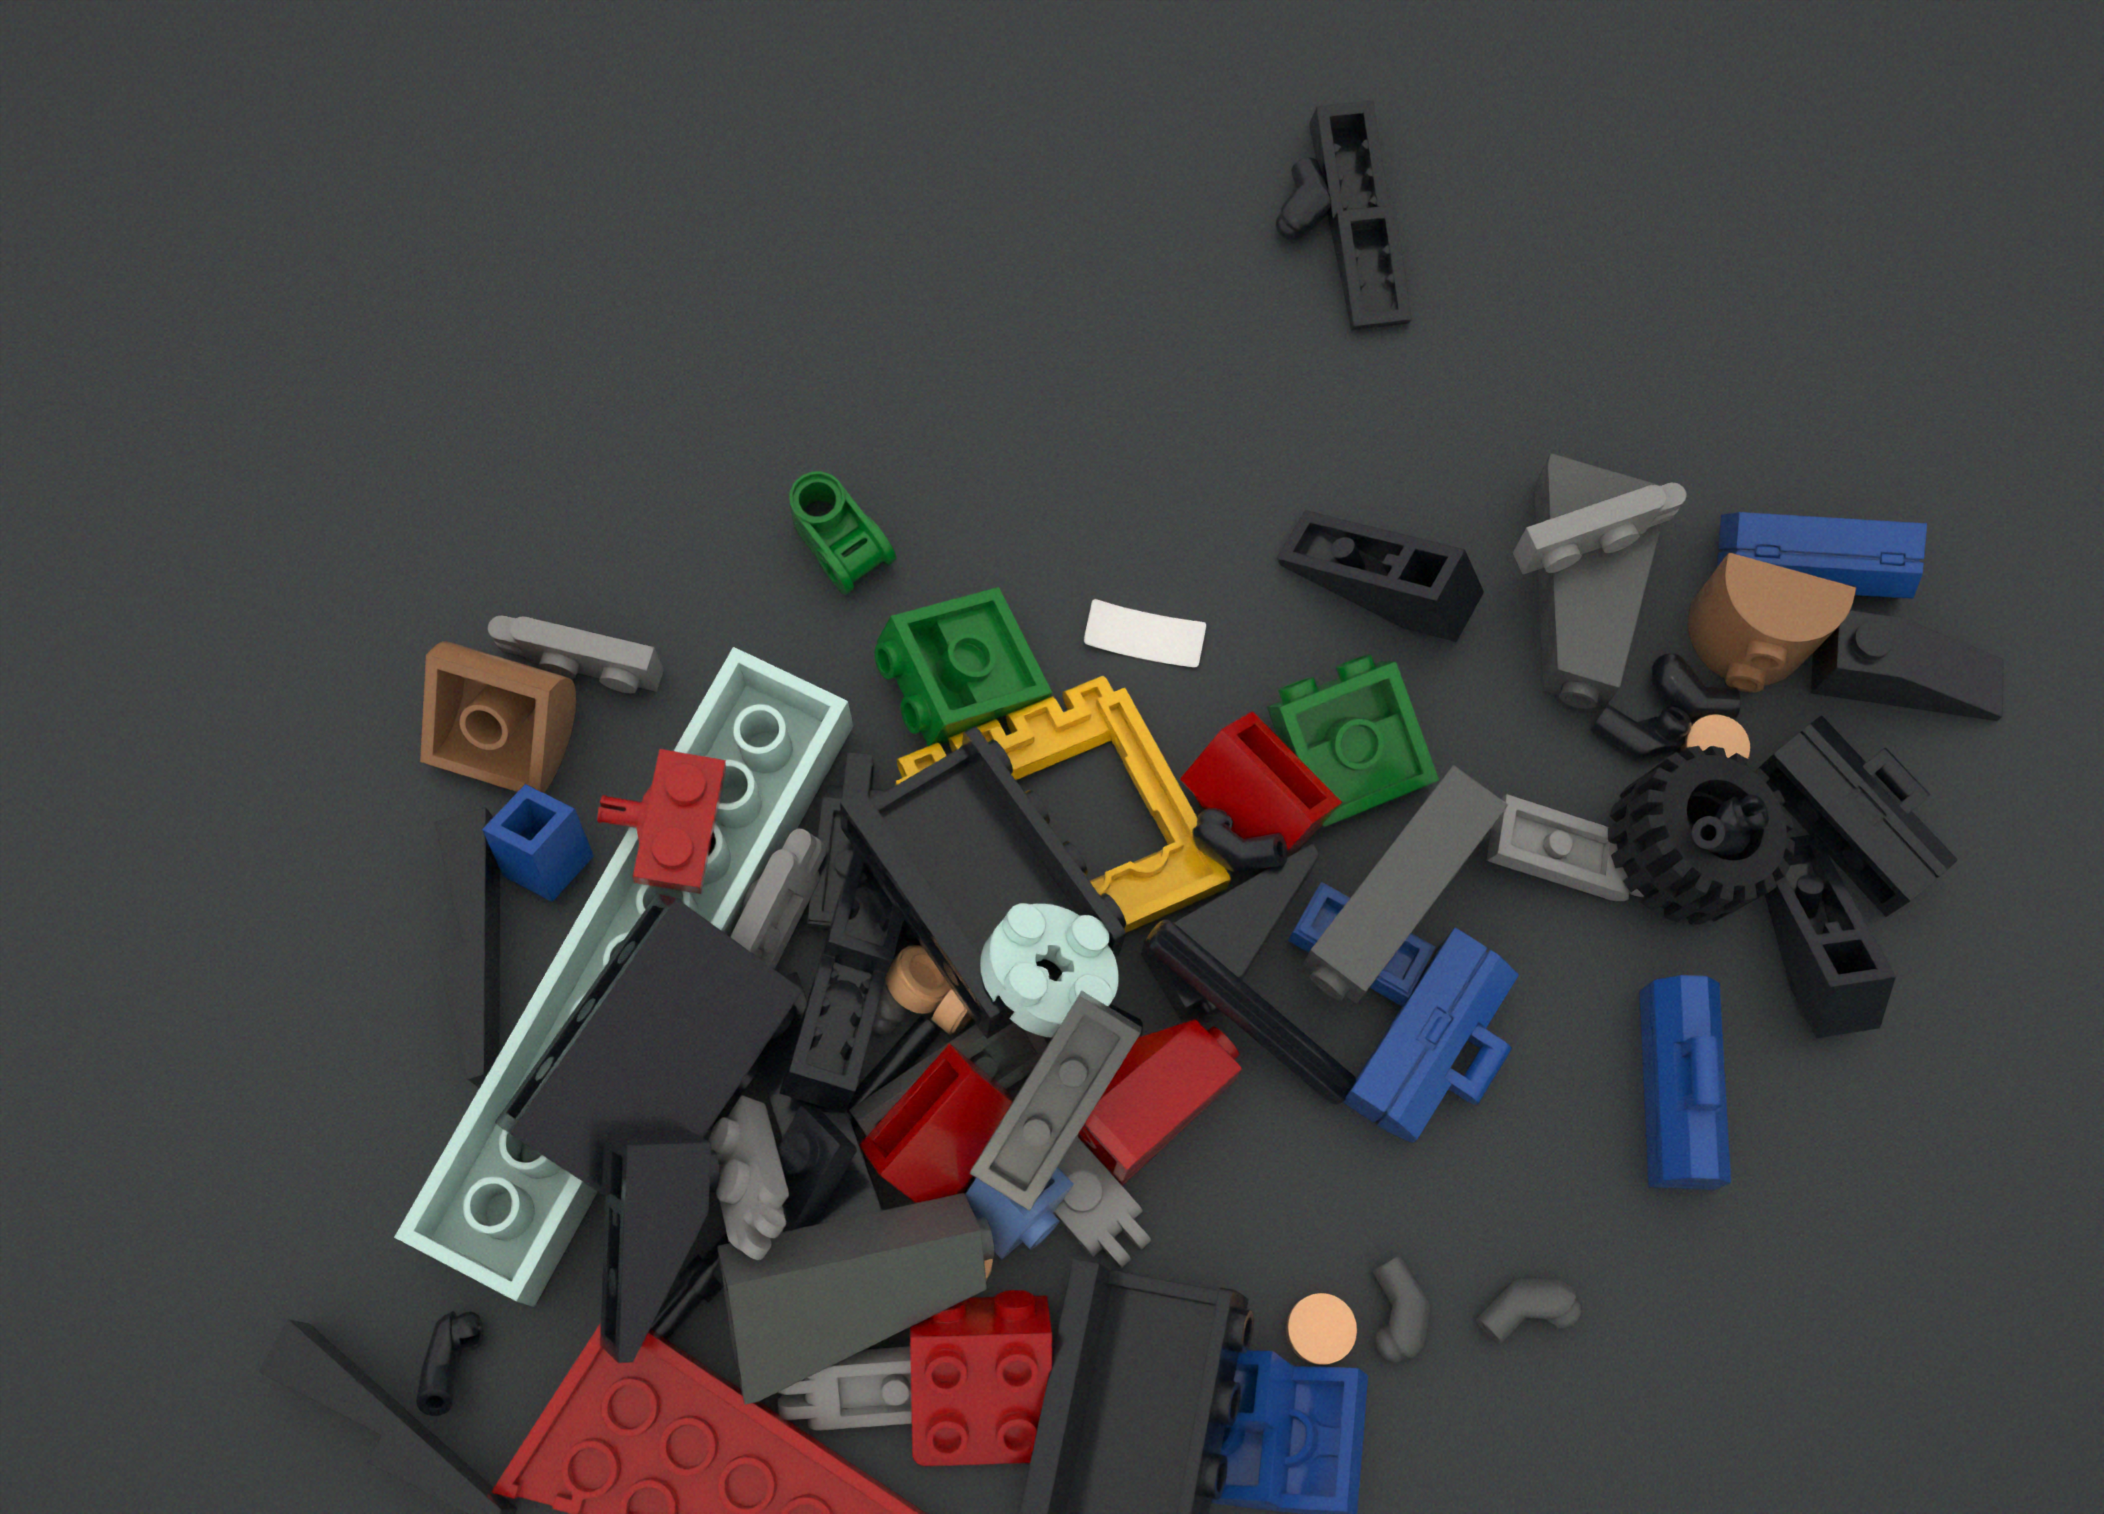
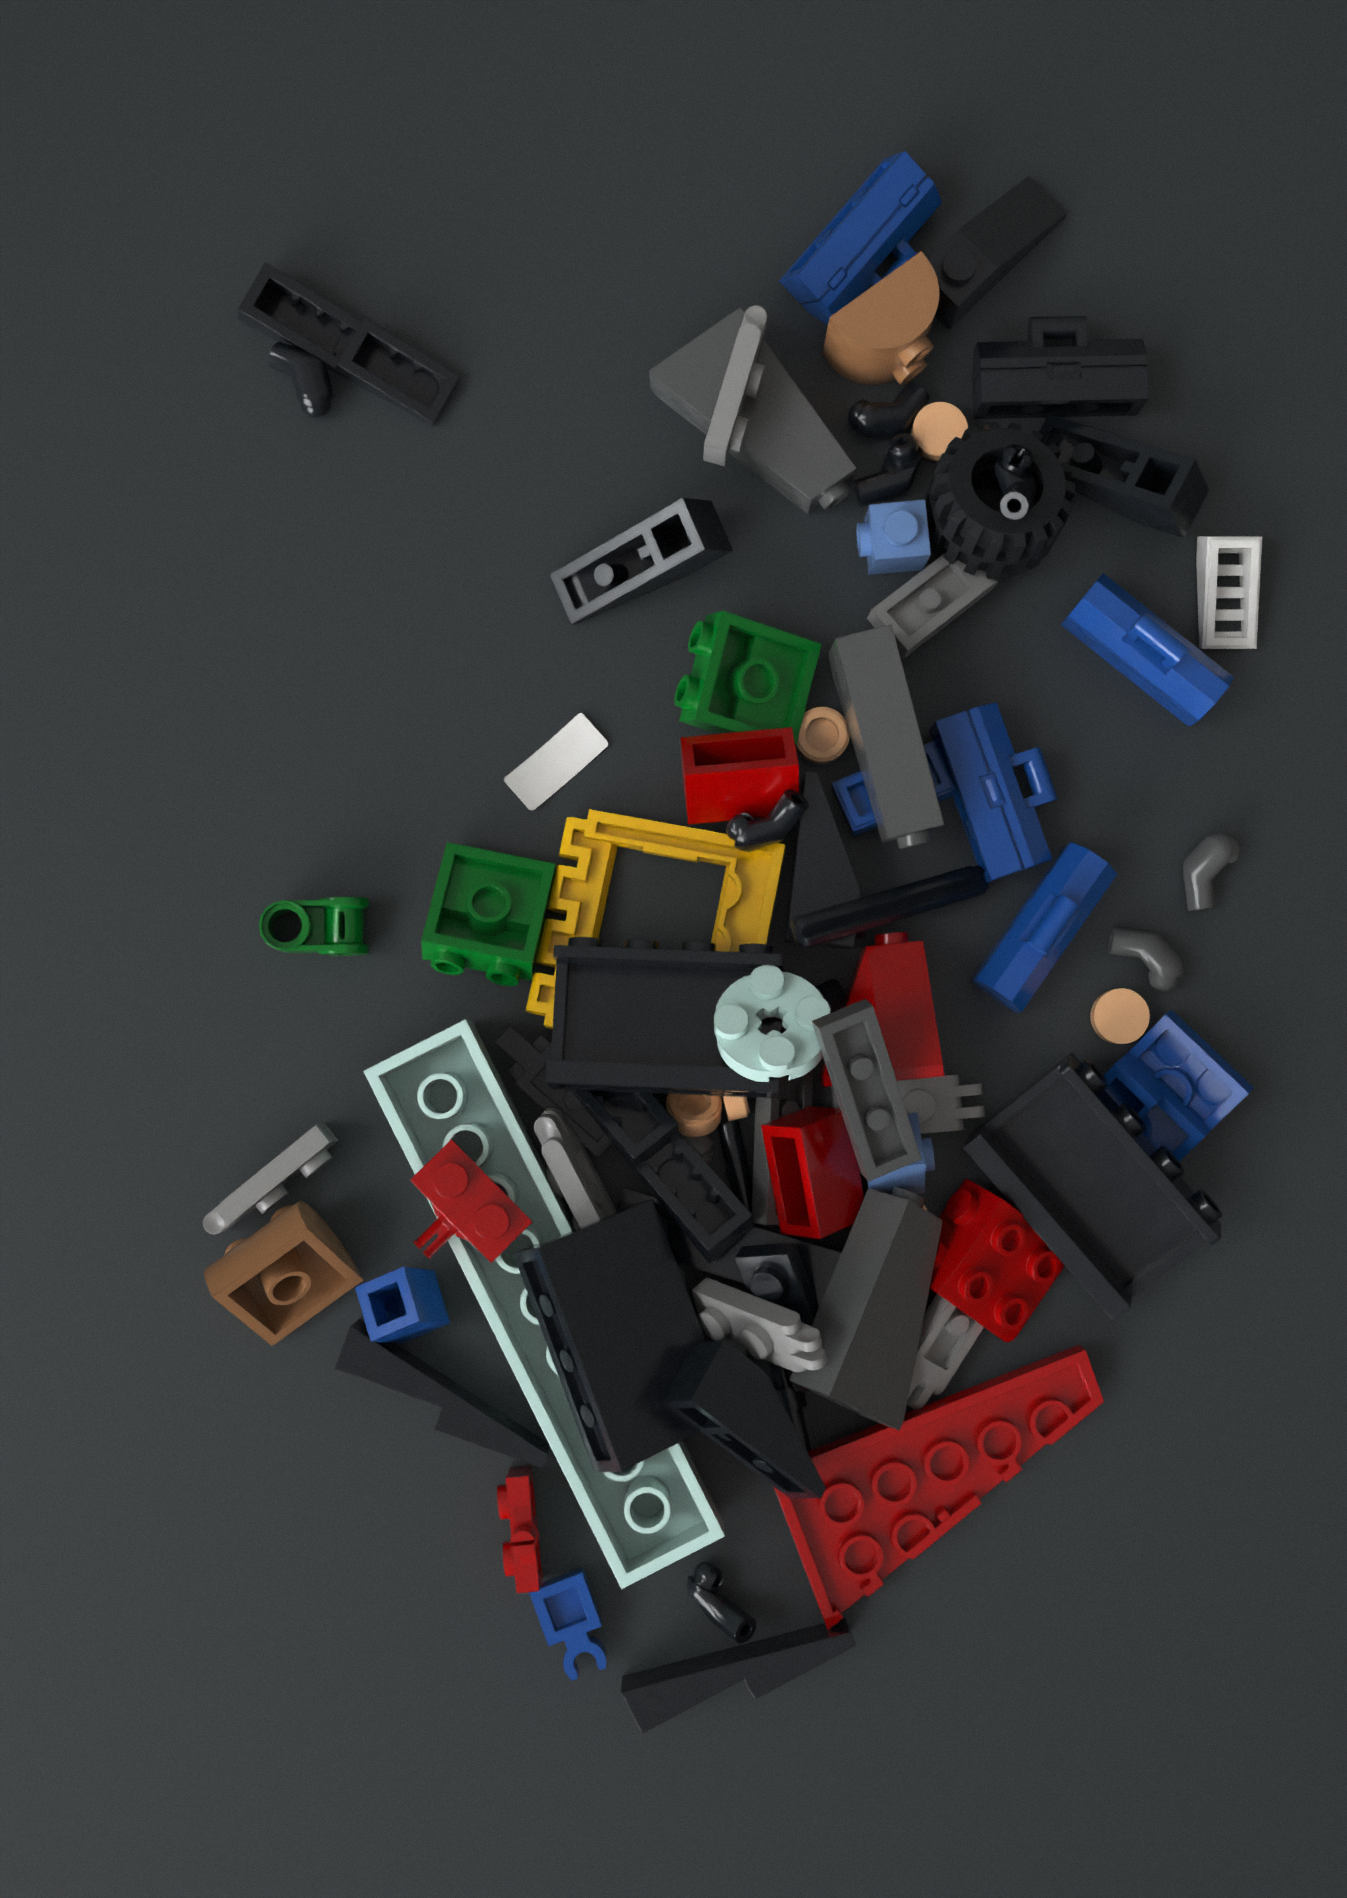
camera: 50 degrees left, 15 degrees up
(337, 1218) = (567, 1615): none -> blue plate
(384, 1120) = (522, 1552): none -> red plate
(1348, 1184) = (1044, 926): none -> blue piece
(1356, 845) = (822, 735): none -> light nougat tile
(1588, 770) = (894, 537): none -> medium blue brick
(1847, 1088) = (1207, 591): none -> white slope

